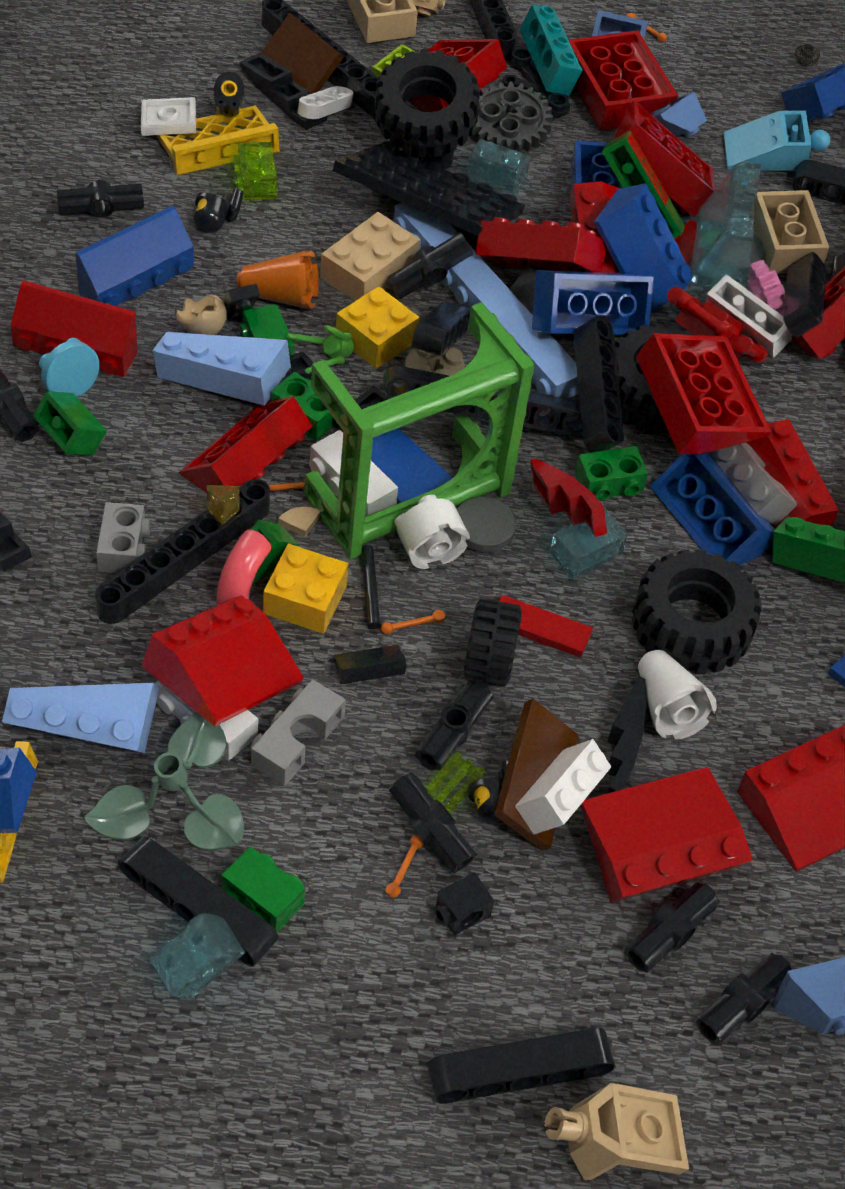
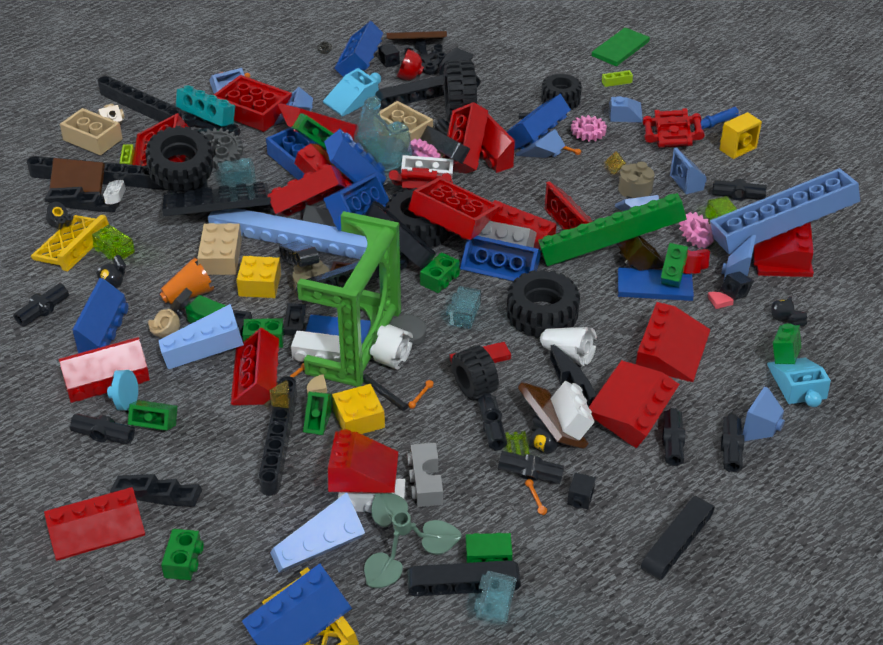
camera: 35 degrees left, 10 degrees down
(121, 536) = (240, 449): light grey brick -> none
(168, 116) = (33, 245): white tile -> none
(242, 566) = (322, 422): coral cylinder -> none
(337, 345) = (247, 297): bright green plant -> none
(370, 664) = (422, 424): black slope -> none
(430, 265) = (257, 231): black piece -> none
(566, 494) = (438, 289): red slope -> none
(624, 1129) = (745, 529): tan plate -> none

